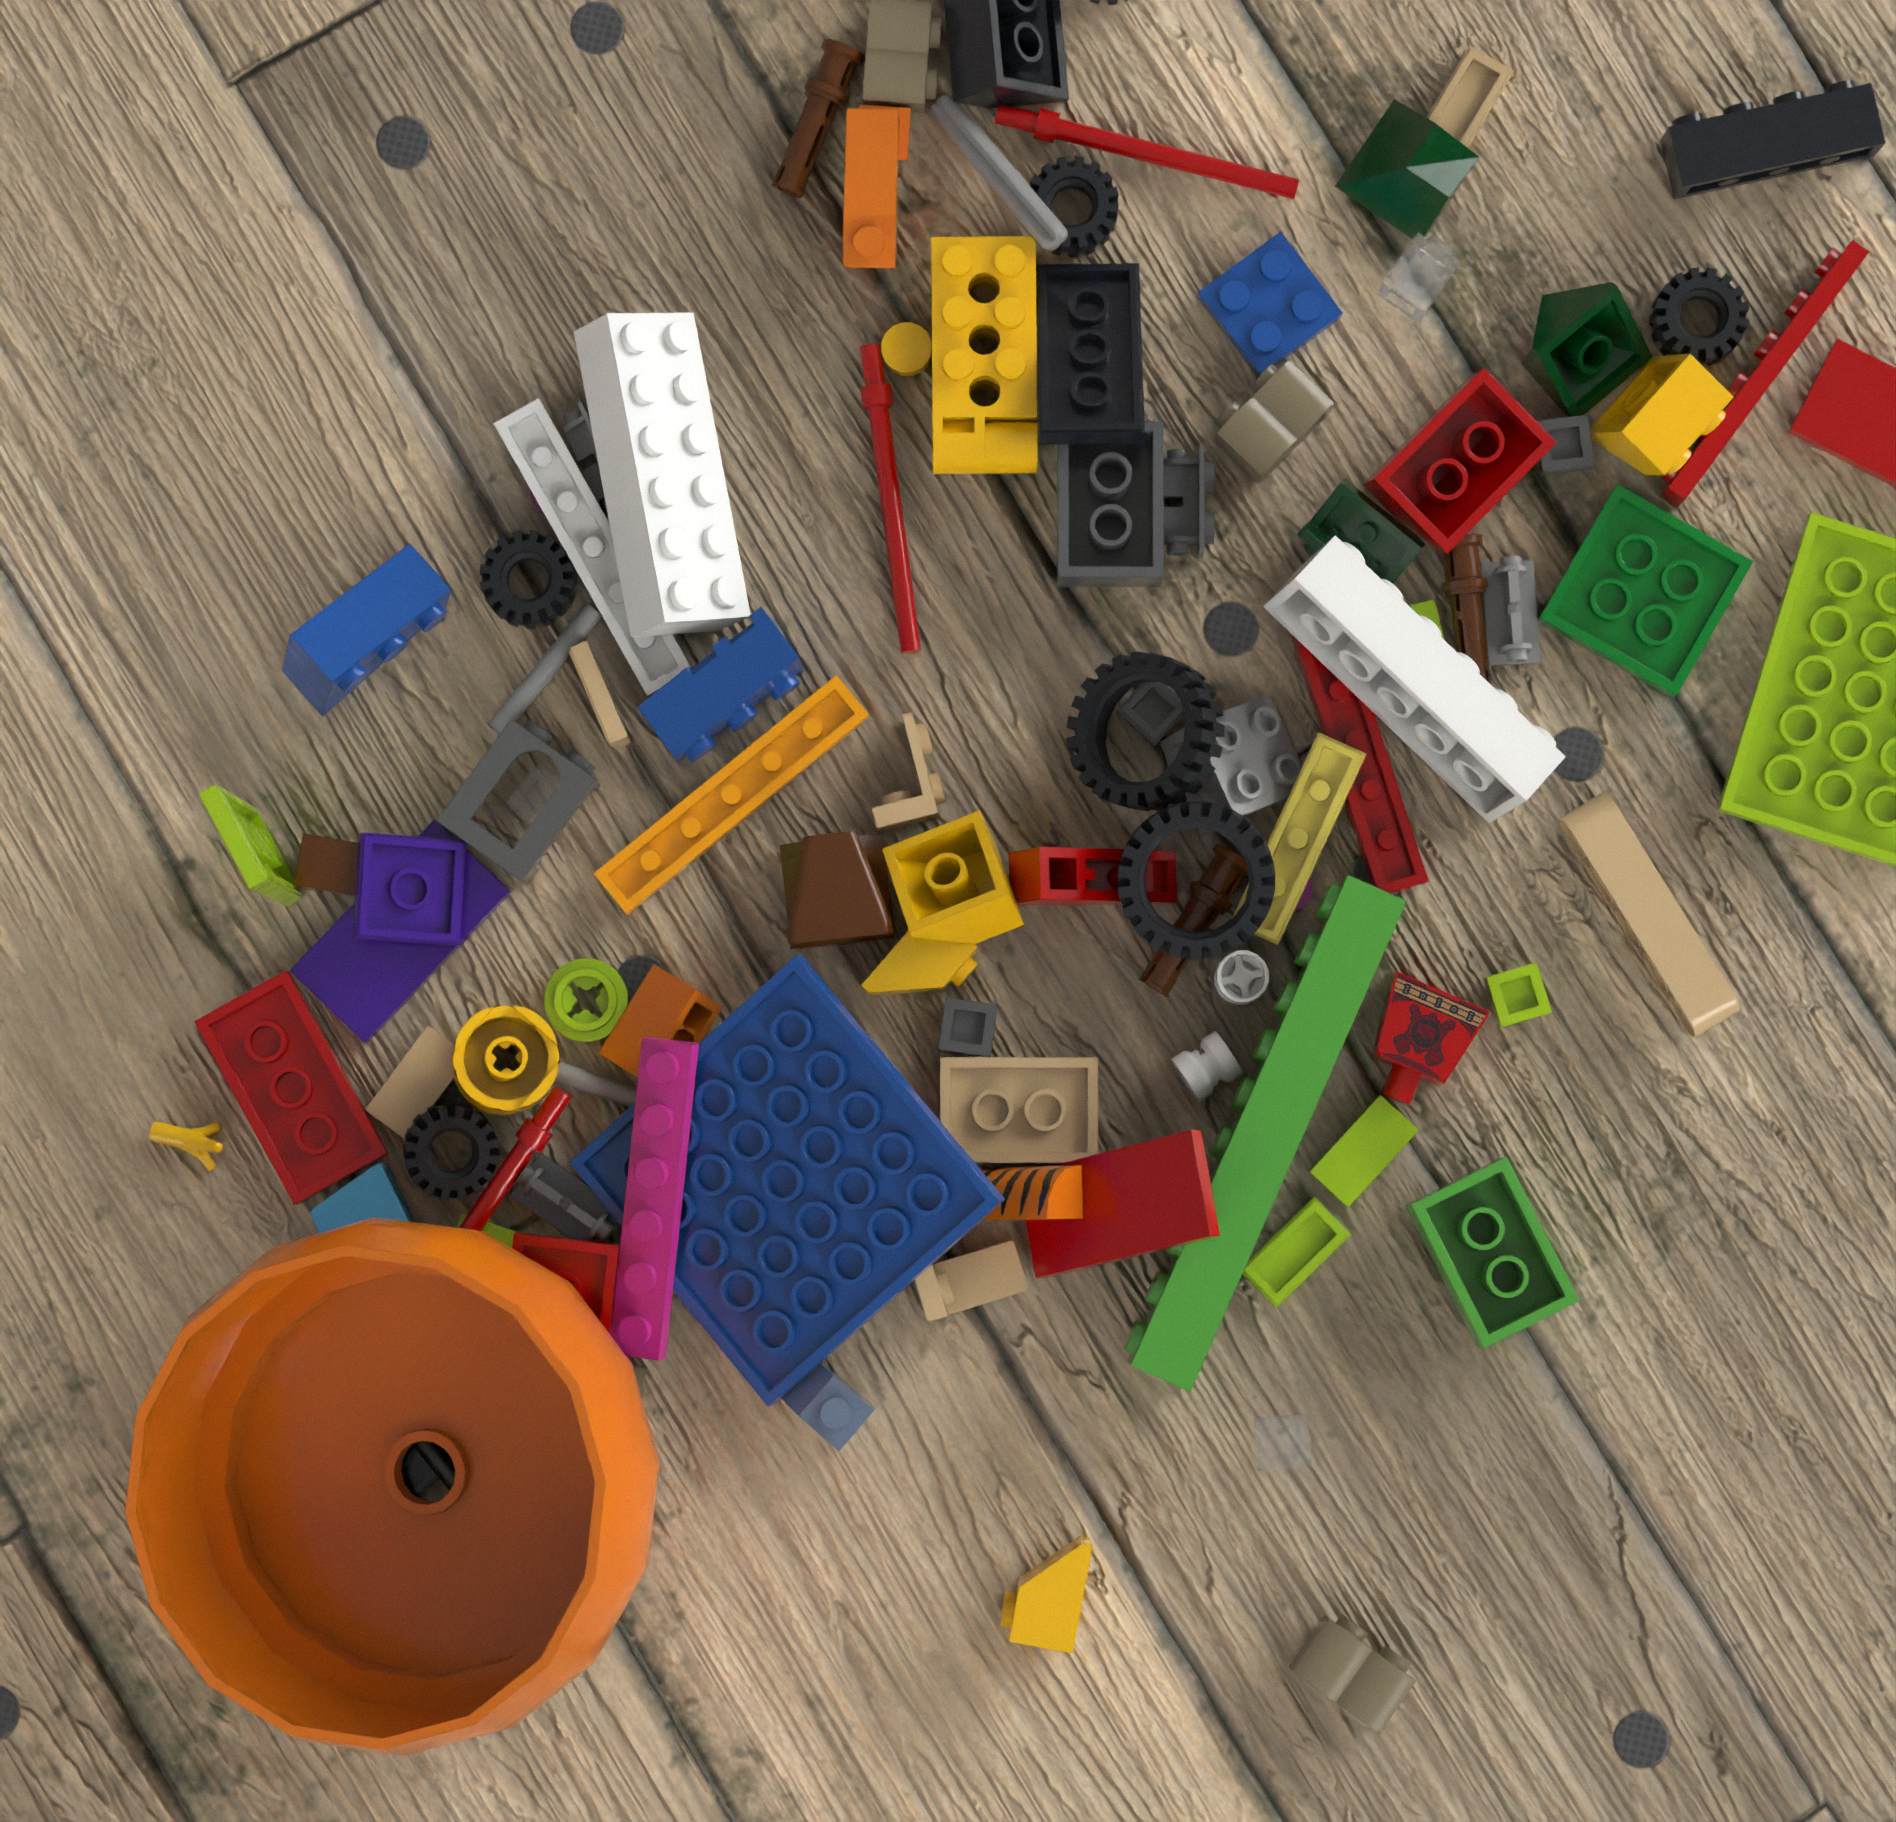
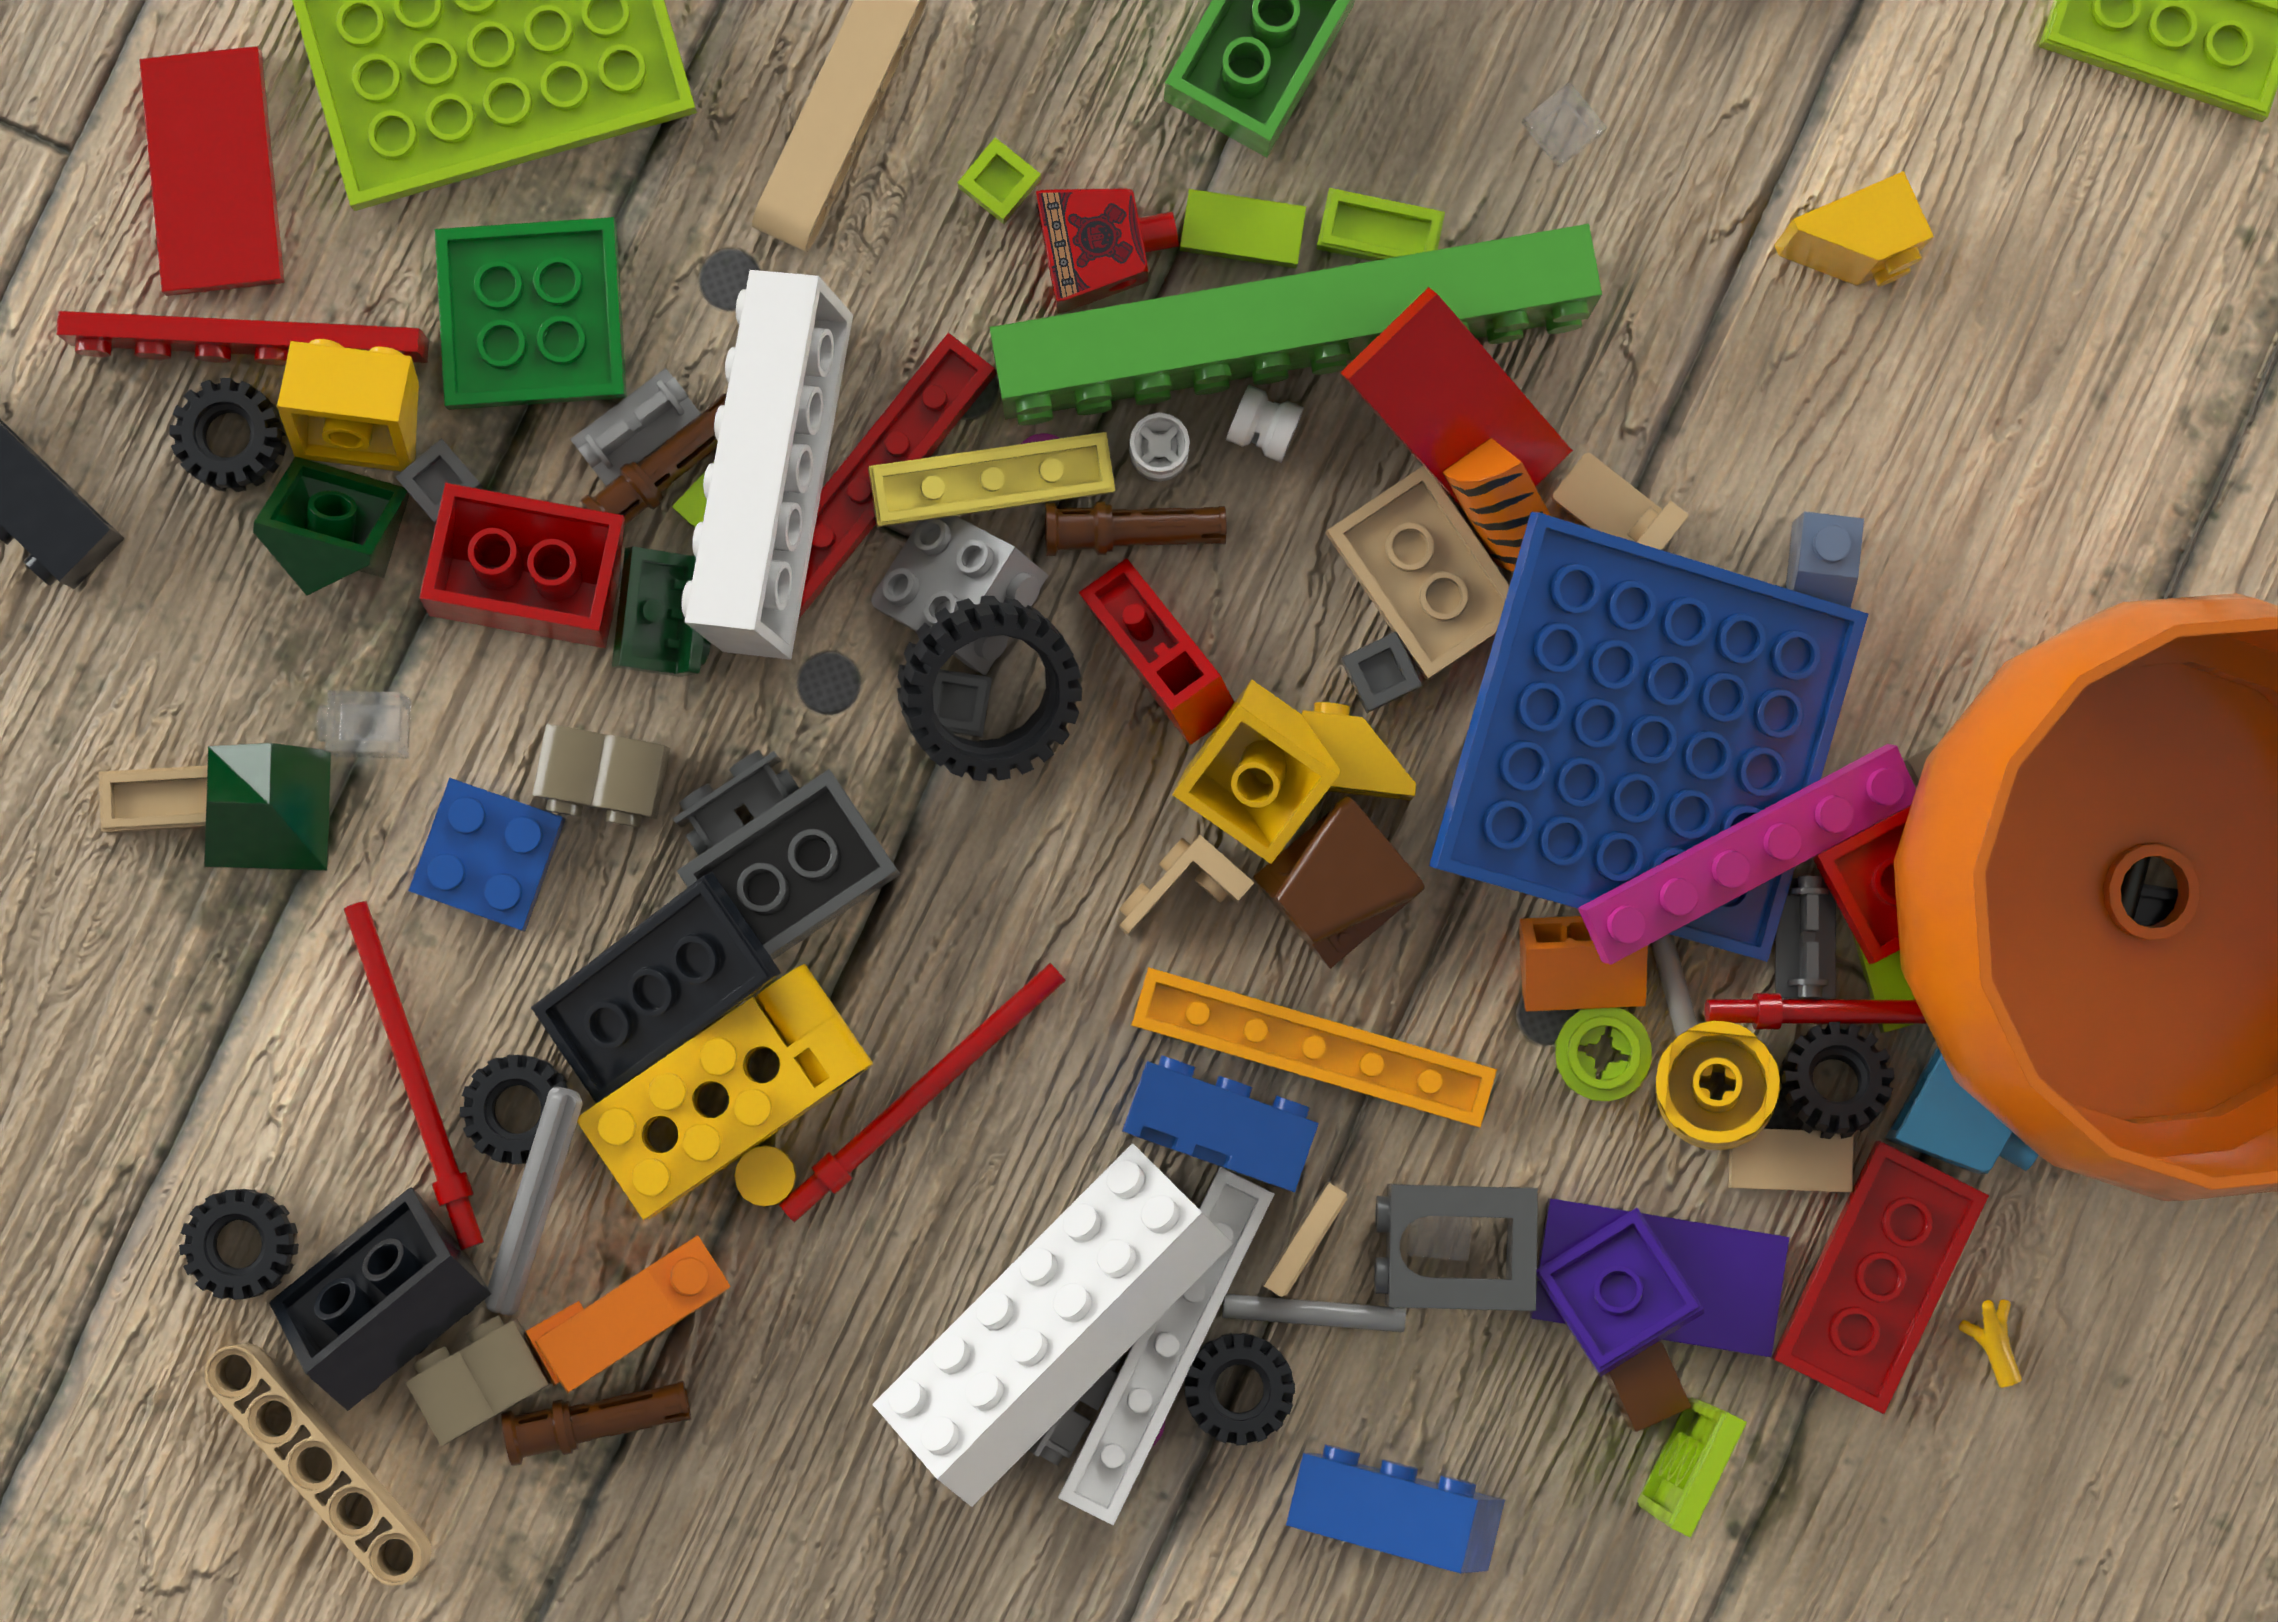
camera: 135 degrees left, 0 degrees up
(1179, 941) = (1150, 492): black tyre -> none

